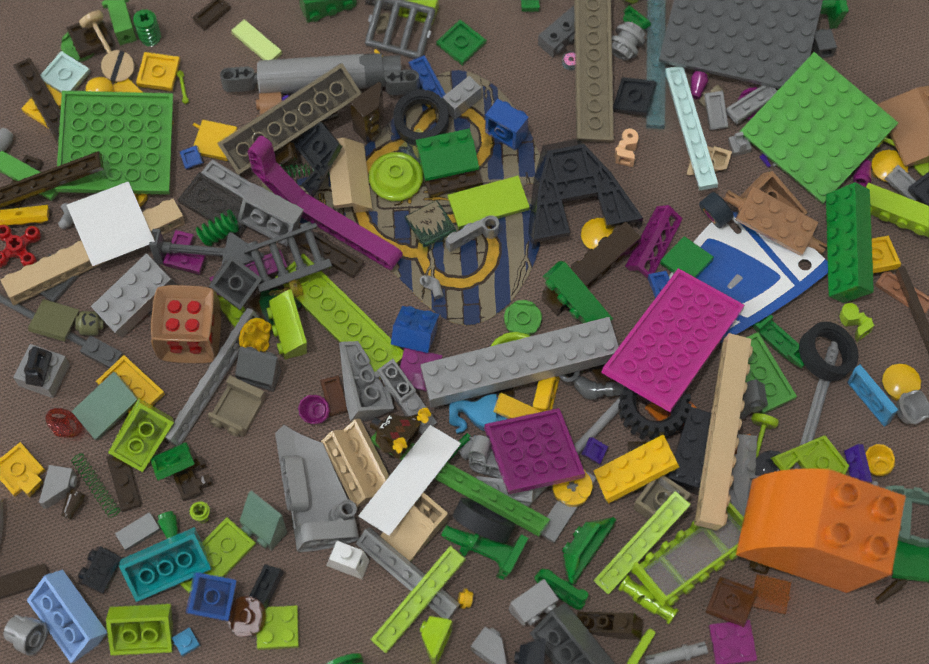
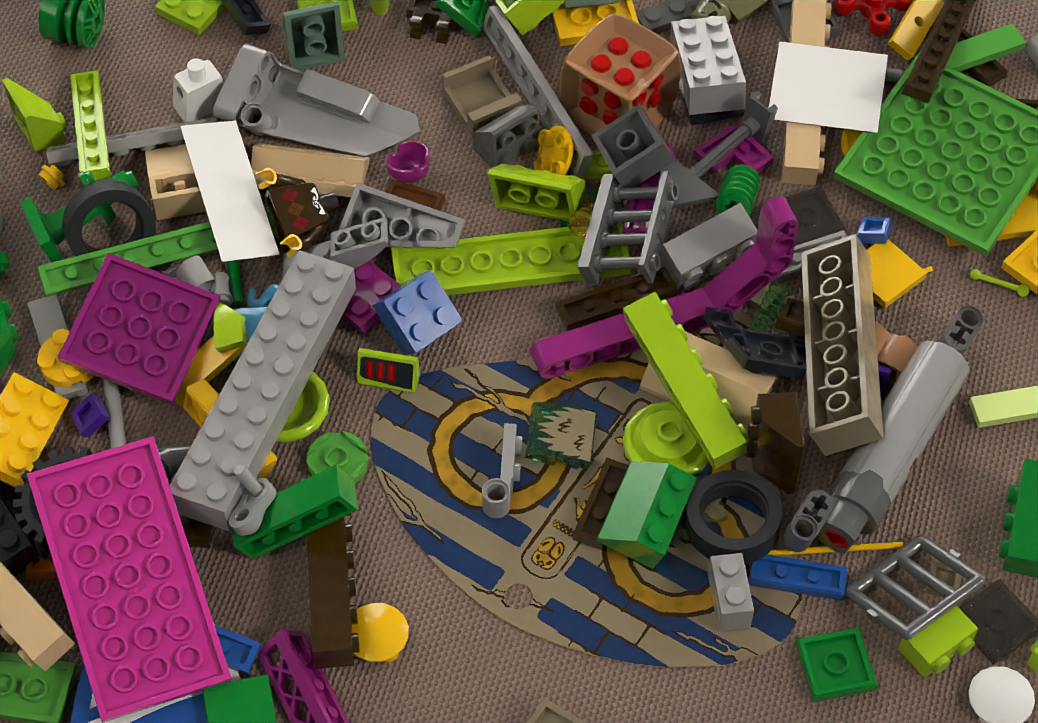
camera: 125 degrees right, 10 degrees down
(365, 174) = (685, 380): none -> lime brick
(432, 284) = (470, 386): light grey arm -> none
(455, 328) = (387, 370): none -> slope
(494, 199) = (538, 527): lime tile -> none
(499, 406) = (229, 329): none -> lime slope
(506, 124) = (636, 611): blue brick -> none
(571, 173) = (487, 661): black piece -> none
(589, 314) = (253, 503): none -> light grey piece

